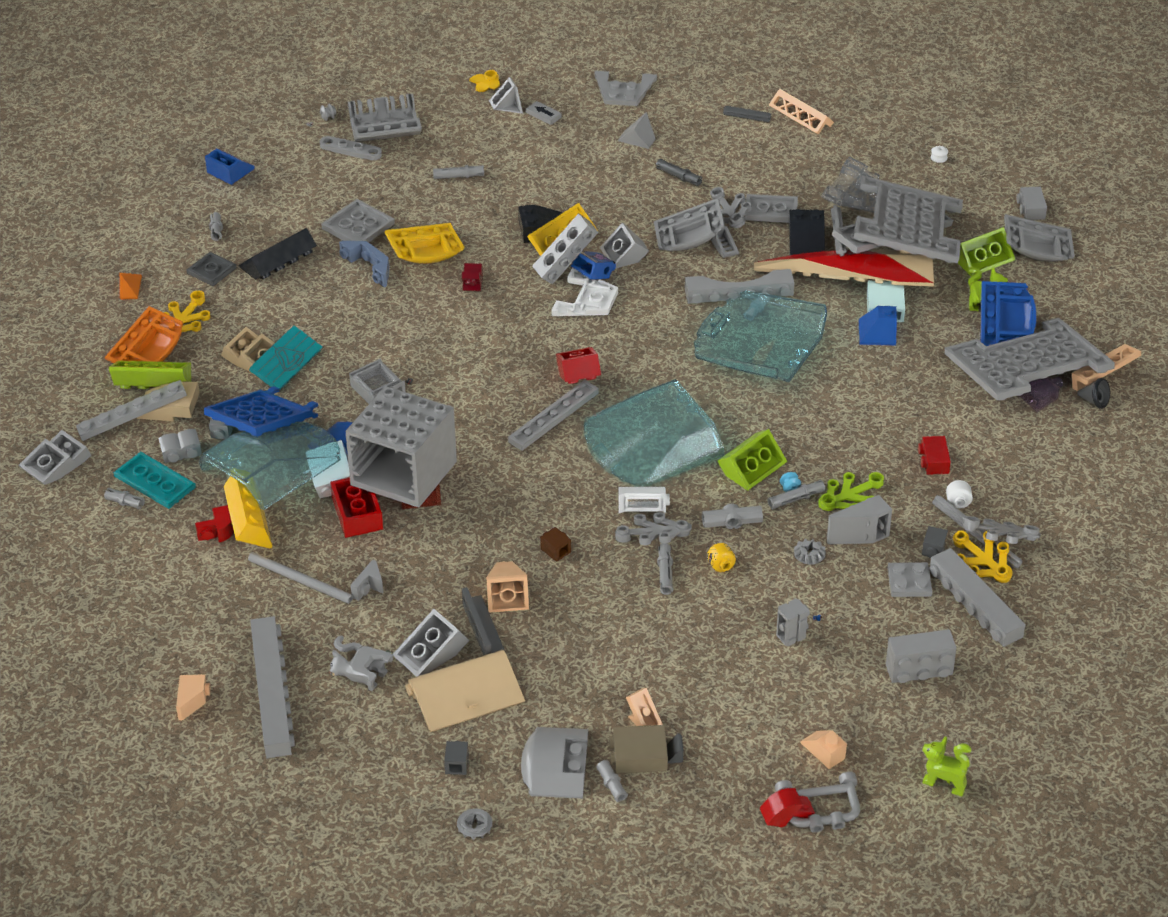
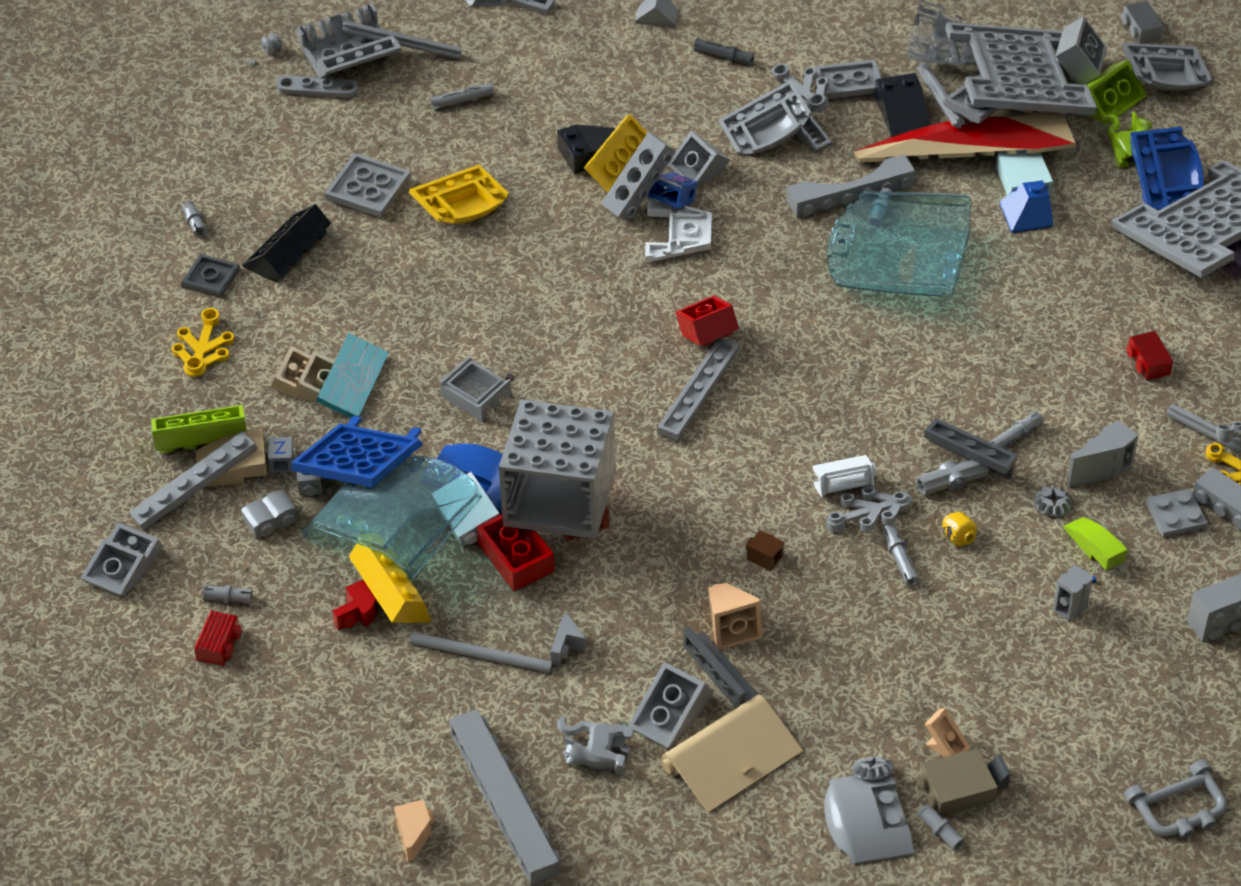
camera: 15 degrees left, 5 degrees up
(102, 528) = (217, 638): none -> red brick
(129, 285) = (119, 317): orange slope -> none
(148, 339) = (174, 383): orange slope -> none
(154, 480) = (254, 563): teal tile -> none
(205, 399) = (280, 454): none -> light grey brick
(226, 166) = (177, 138): blue slope -> none
(356, 249) = (378, 220): sand blue slope -> none
(429, 124) = (402, 39): none -> light grey axle
(456, 757) = (755, 837): dark grey brick -> none
(472, 277) = (535, 230): dark red brick -> none
(574, 724) = (873, 768): none -> light grey gear
(652, 436) = (822, 392): clear light blue windscreen -> none
(753, 460) = (949, 397): lime slope -> none
(755, 497) = (971, 447): none -> dark grey fence
(783, 805) = (1146, 816): red brick -> none
(790, 481) = (1001, 420): medium azure wheel -> none
(826, 747) = (1161, 734): light nougat slope -> none
(830, 501) = (1094, 400): lime plant -> none
(832, 589) = (1097, 542): none -> lime slope
(934, 541) = (1189, 463): dark grey brick -> none
(959, 494) = (1194, 398): white head -> none
(967, 215) = (1081, 52): none -> light grey brick

